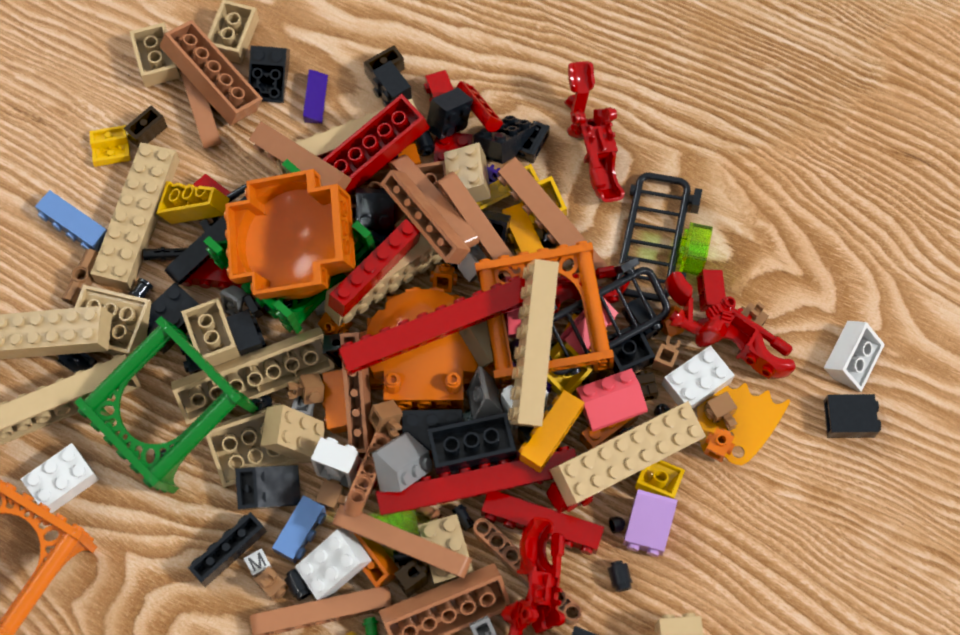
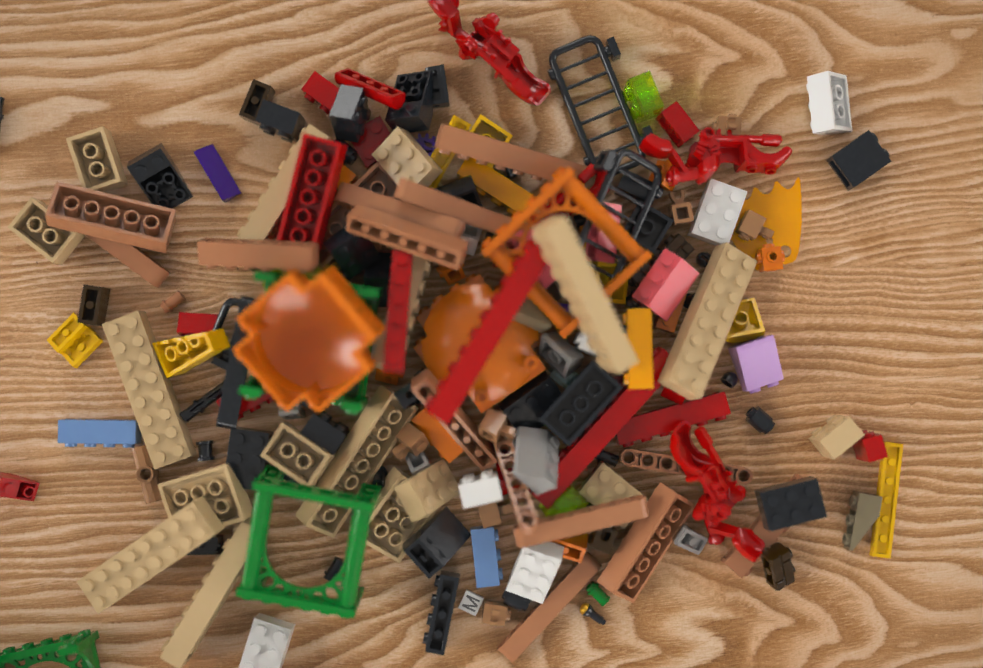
camera: 35 degrees left, 20 degrees up
(206, 165) = (173, 301): none -> nougat pin

